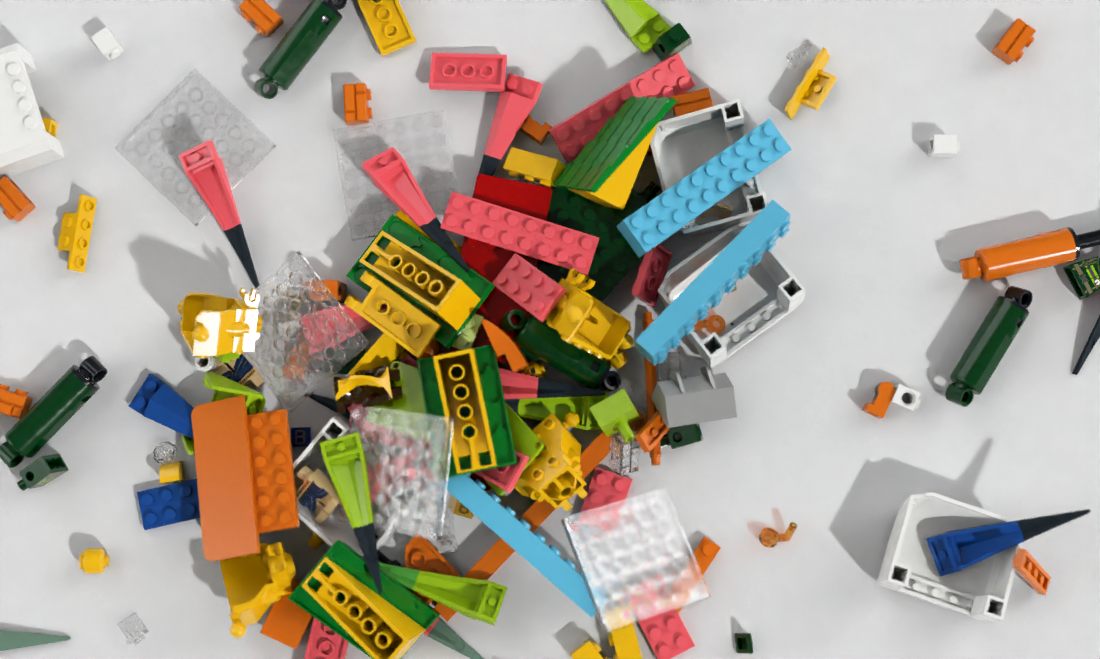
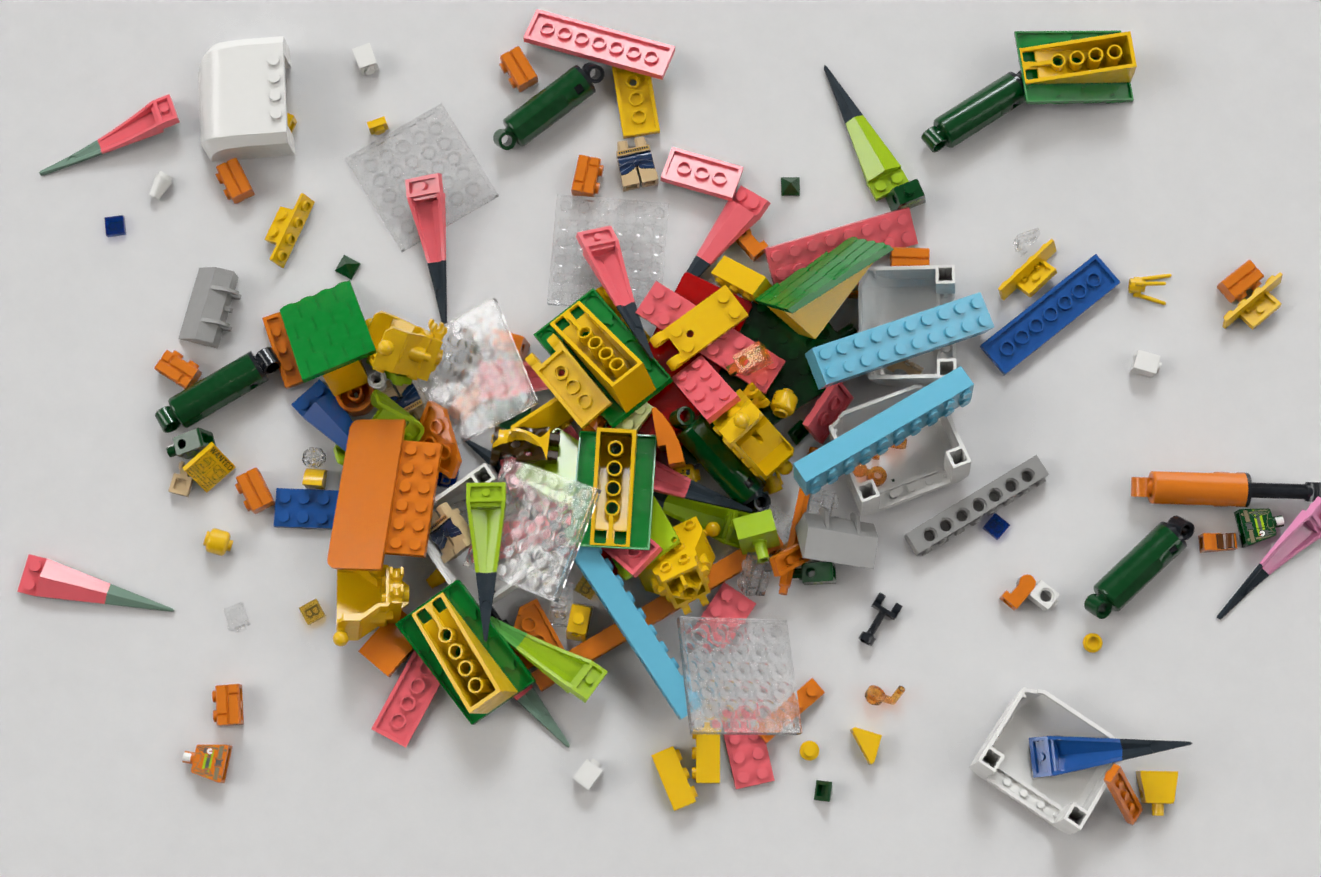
camera: 15 degrees right, 5 degrees down
(22, 330) = (210, 306): none -> light grey piece
(42, 512) = (181, 483): none -> tan plate
(64, 490) = (208, 467): none -> yellow tile
(106, 354) = (282, 348): none -> orange plate
(116, 501) = (255, 491): none -> orange brick
(138, 107) = (378, 126): none -> yellow plate
(146, 333) = (330, 337): none -> green piece
(147, 255) = (347, 267): none -> dark green slope
(178, 381) = (356, 406): none -> orange brick
(205, 603) = (312, 611): none -> clear yellow tile
(281, 396) = (439, 430): none -> orange plate
(398, 74) = (636, 158): none -> hips
(466, 543) = (579, 622): none -> yellow torso
(513, 219) = (708, 322): none -> yellow hinge
(557, 61) = (790, 186): none -> dark green slope
(571, 241) = (757, 357): none -> torso
(608, 278) = (783, 403): none -> yellow head
(628, 301) = (798, 432): none -> dark green slope
(720, 607) = (809, 750): none -> yellow plate
(747, 482) = (868, 637): none -> black bar
(775, 585) = (867, 742): none -> yellow slope
(840, 122) = (1049, 314): none -> blue plate
(841, 342) = (996, 526): none -> clear blue tile
(861, 275) = (1032, 467): none -> light grey brick
(917, 70) = (1138, 285): none -> yellow plant
(962, 430) = (1092, 642): none -> yellow plate
(1036, 62) = (1256, 307): none -> yellow bracket
(1055, 301) = (1217, 542): none -> orange leg
(1059, 554) = (1157, 789): none -> yellow torso

